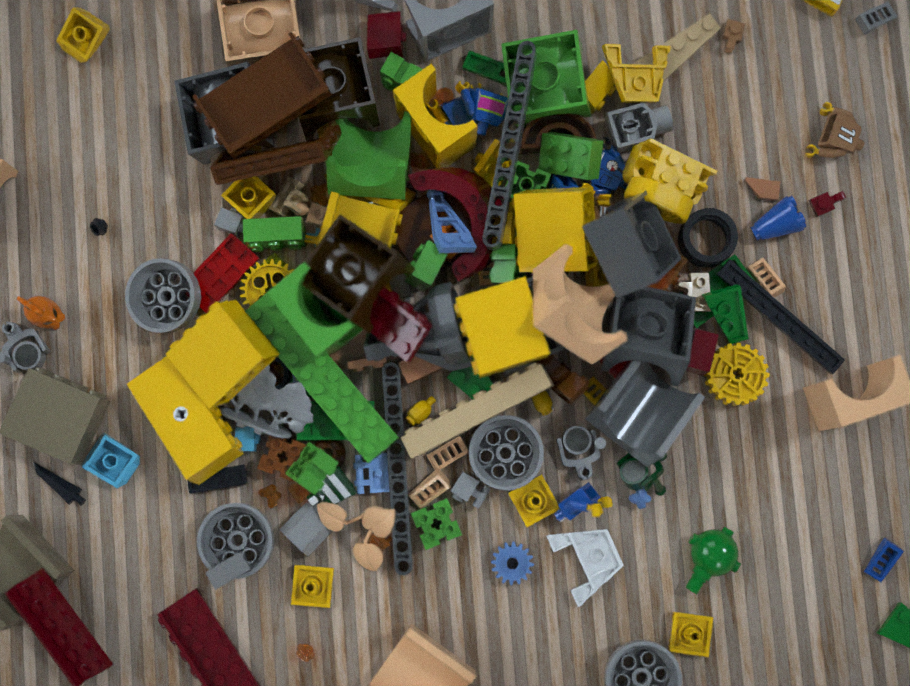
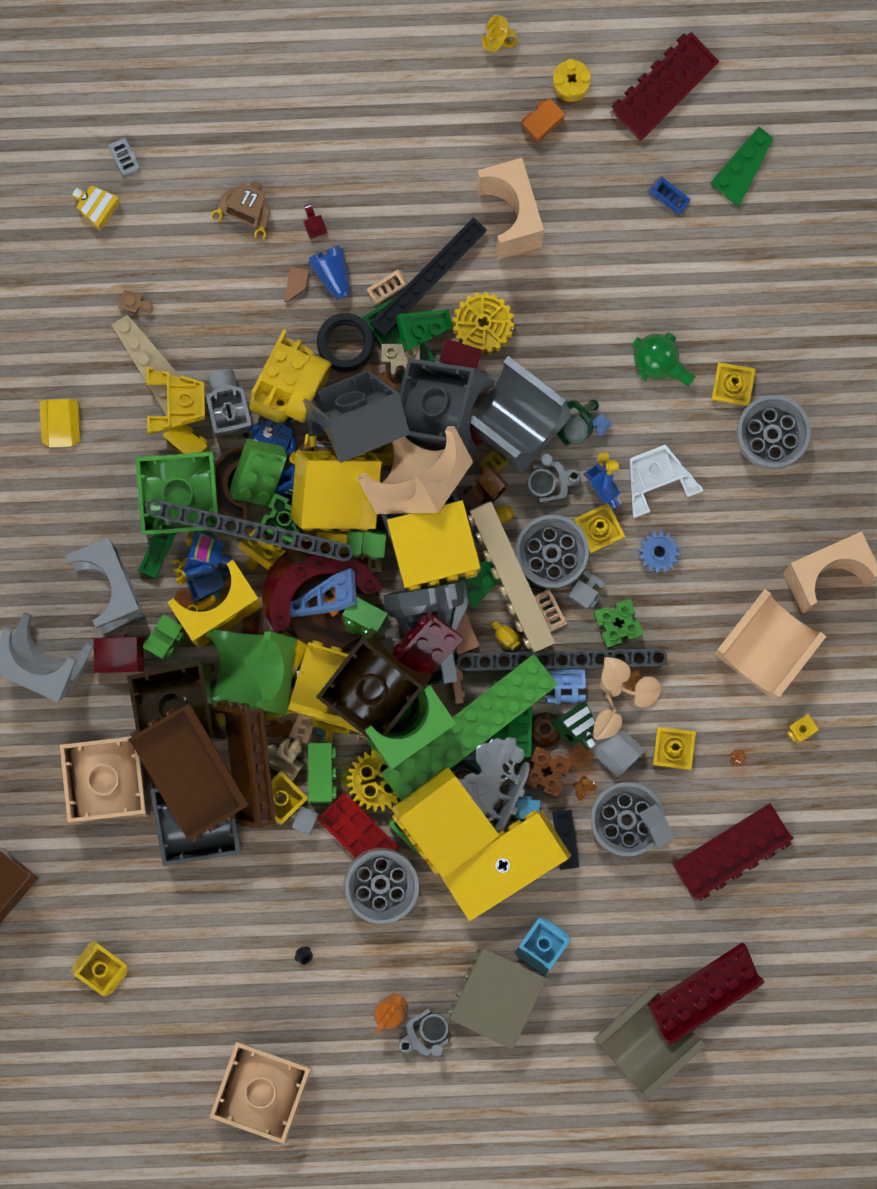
camera: 85 degrees left, 0 degrees up
(62, 487) = (567, 996): black bar -> none
(312, 468) = (560, 739): bright green brick -> none
(434, 493) = (579, 633): light nougat slope -> none

